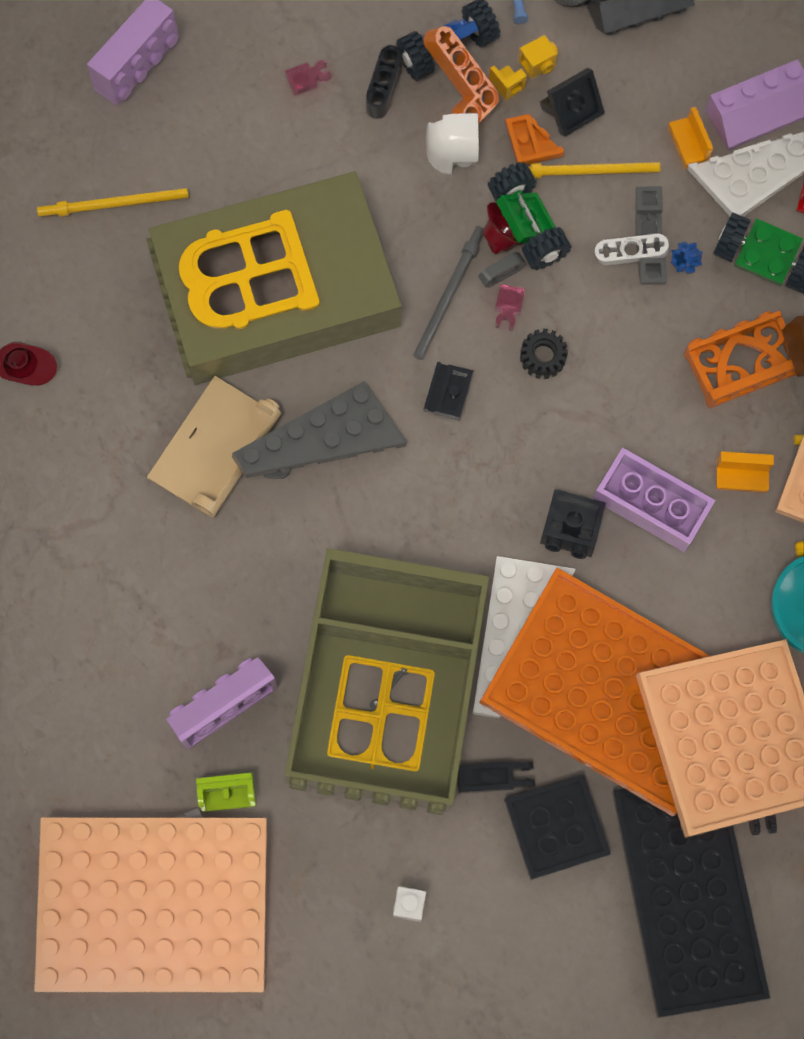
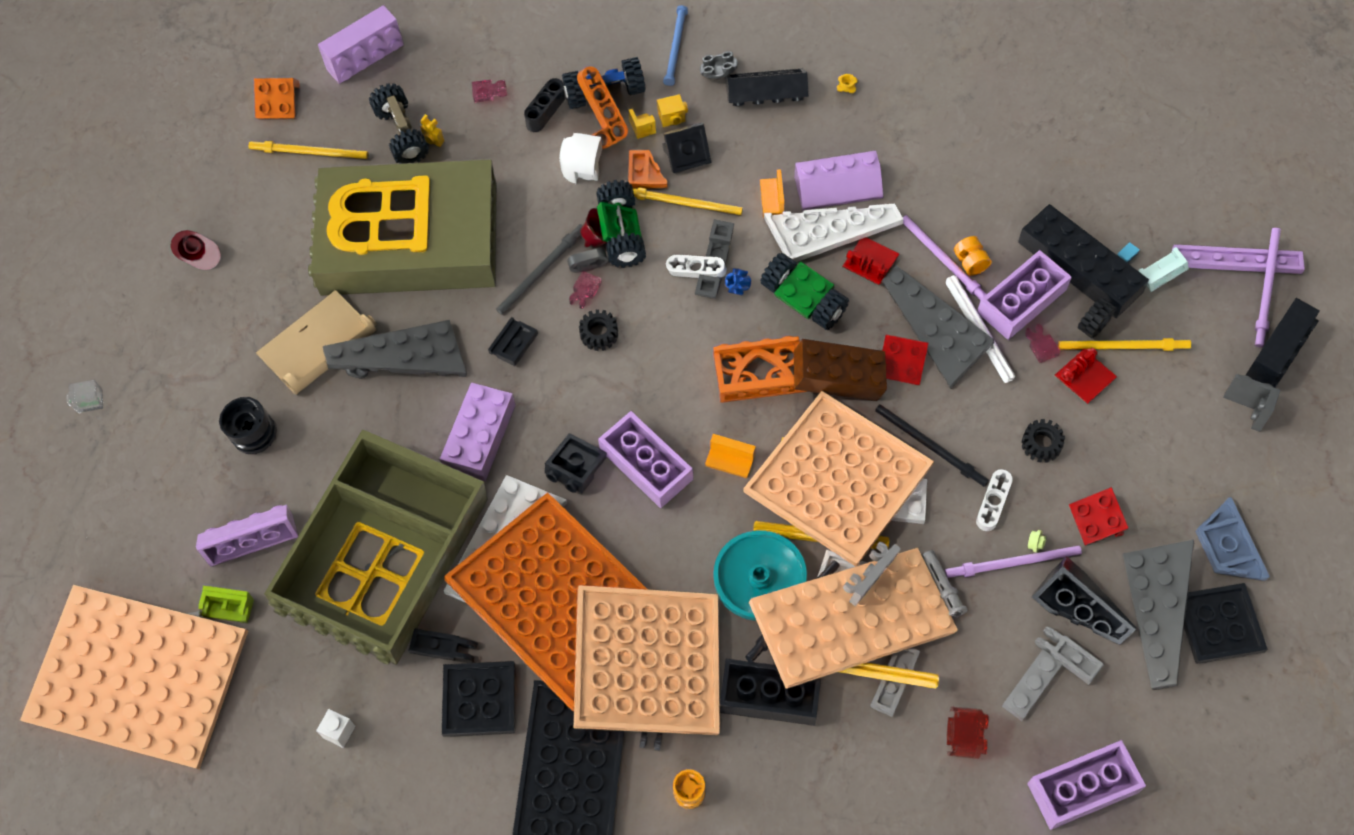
camera: 20 degrees right, 10 degrees down
(48, 143) = (275, 97): none -> orange bracket
(165, 560) = (248, 425): none -> black wheel
(200, 121) = (409, 144): none -> black plate
(259, 147) = (430, 132): none -> yellow plate
(448, 512) = (478, 431): none -> lavender brick

